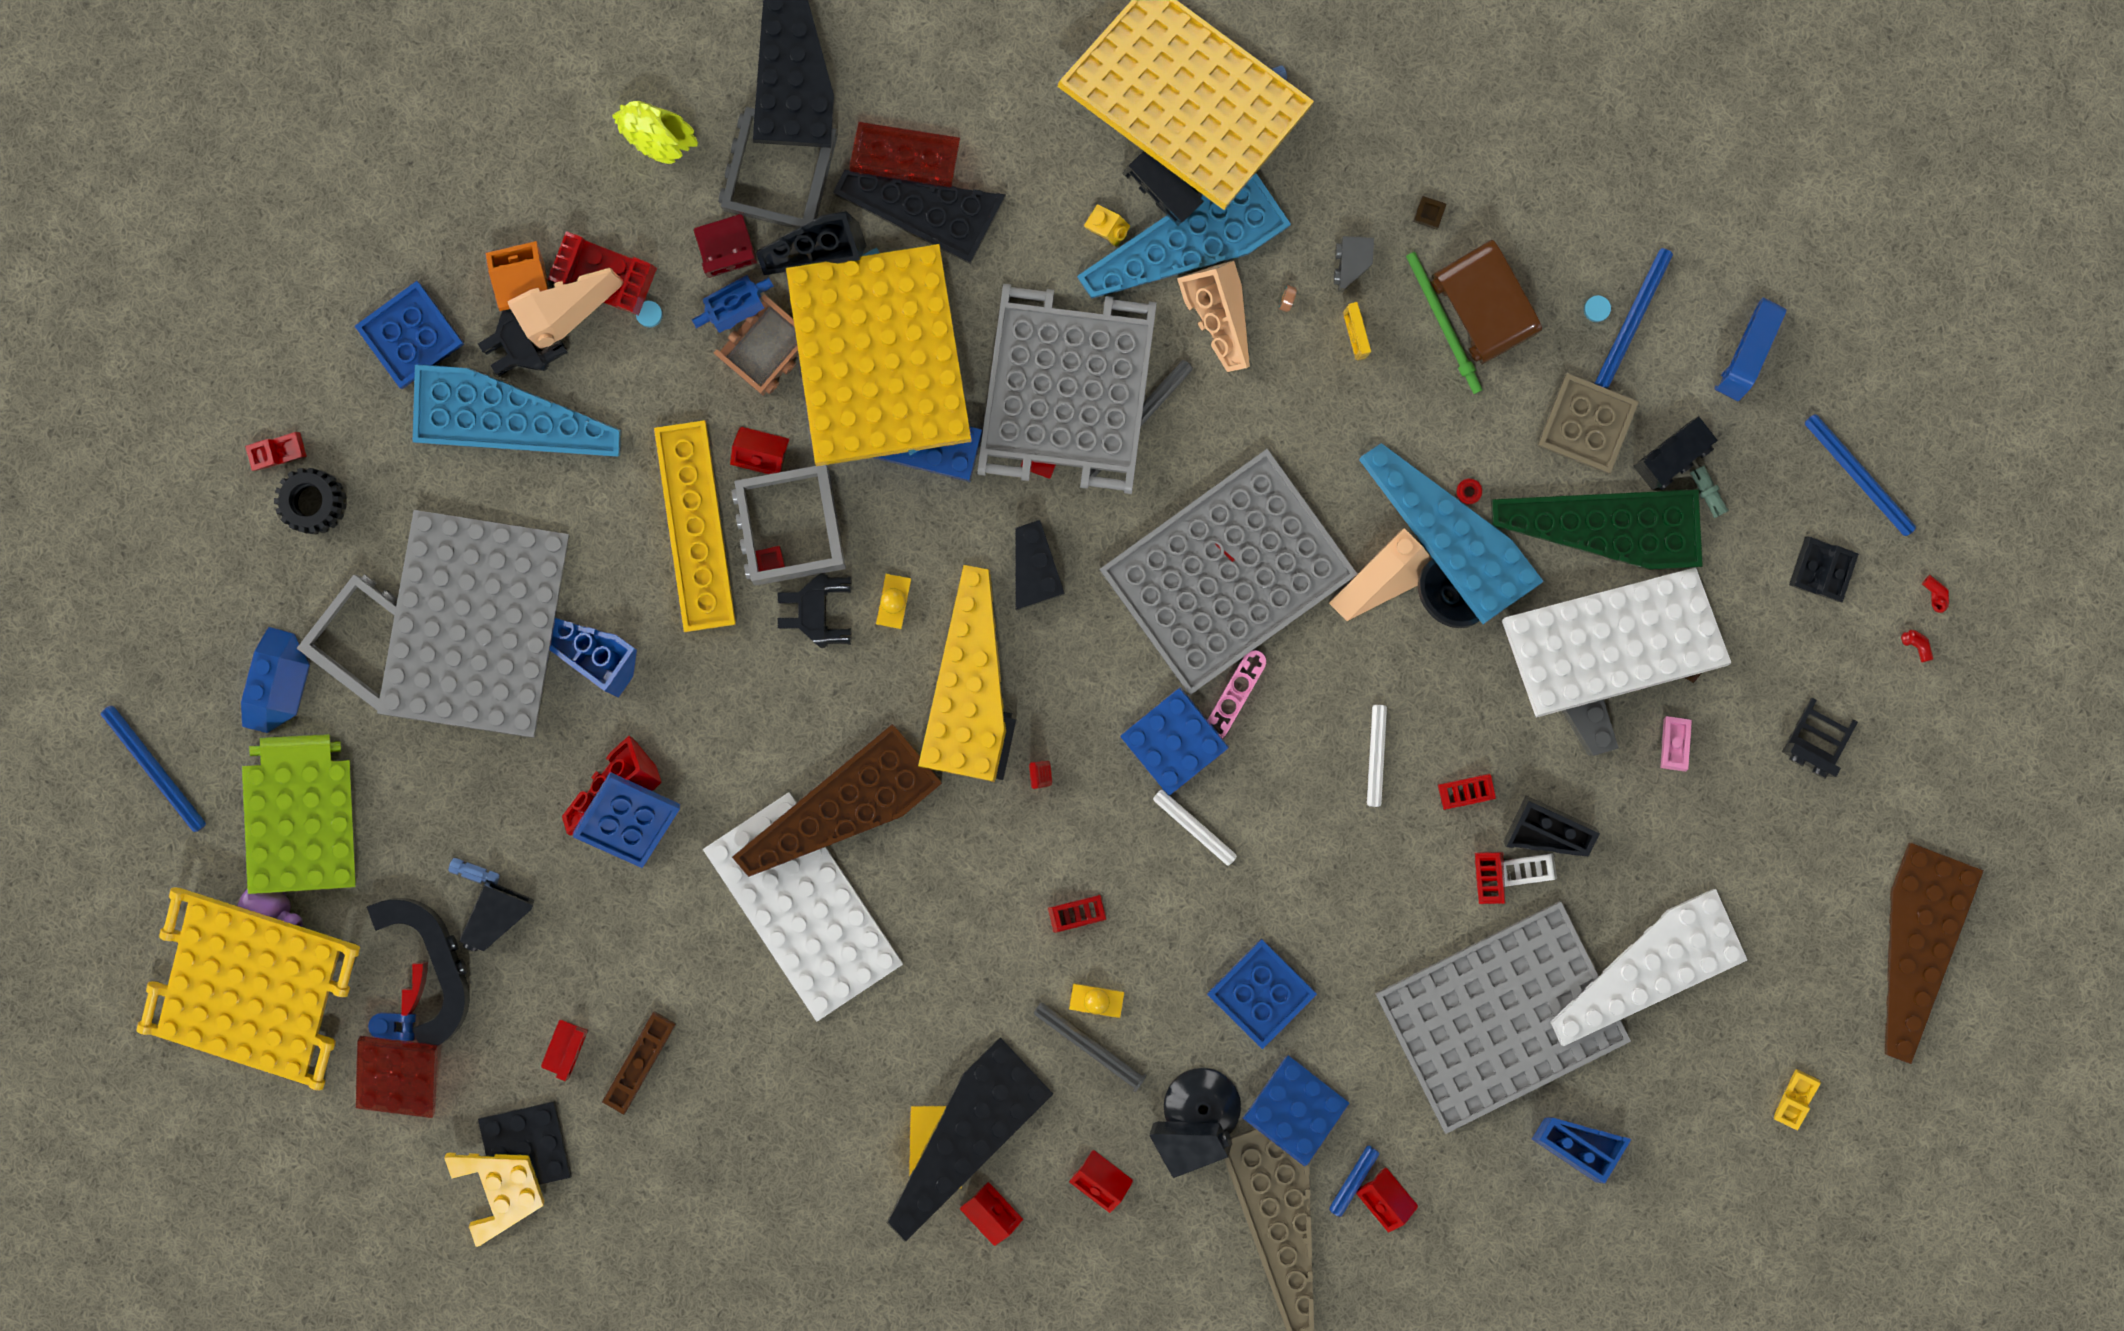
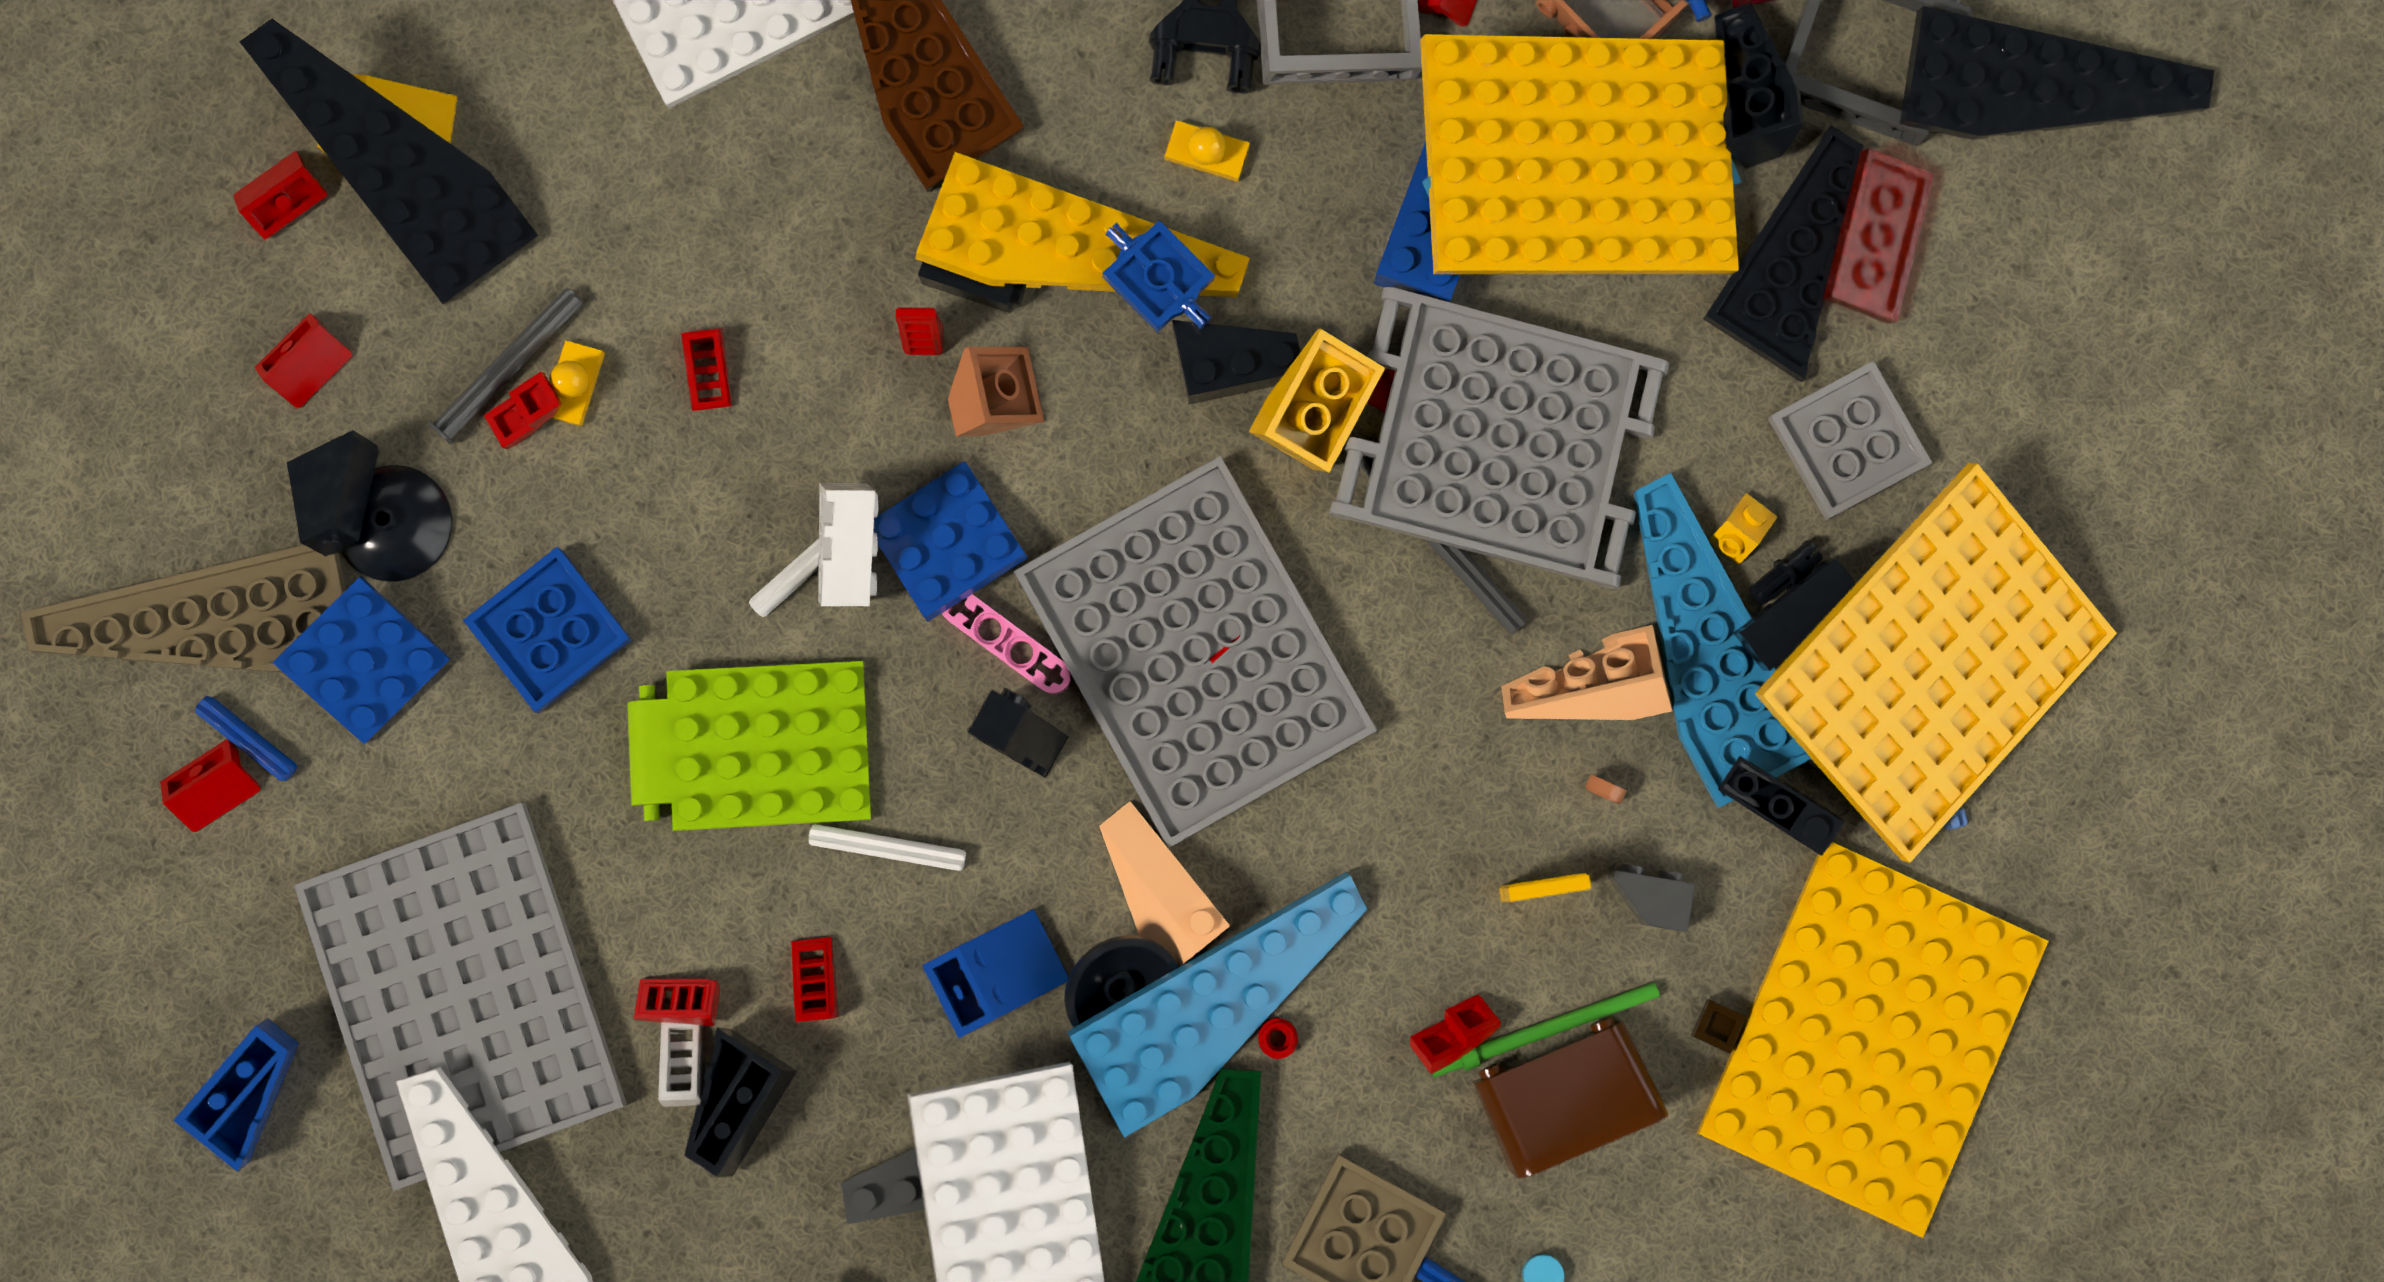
camera: 95 degrees right, 5 degrees down
(988, 621) = (1158, 276): none -> blue plate
(1042, 161) = (1849, 440): none -> light grey plate
(1060, 509) = (1318, 401): none -> yellow slope
(1072, 721) = (994, 391): none -> nougat slope
(1120, 1029) = (524, 411): none -> red slope
(1133, 195) = (1785, 572): none -> black axle
(1186, 804) = (847, 544): none -> white wedge
(1286, 184) = (1781, 805): none -> black slope
(1296, 678) = (1017, 732): none -> black wedge
(1322, 850) = (752, 746): none -> lime plate
(1424, 114) = (1873, 1038): none -> yellow plate
(1450, 675) = (995, 973): none -> blue slope
(1455, 378) = (1459, 1033): none -> red slope

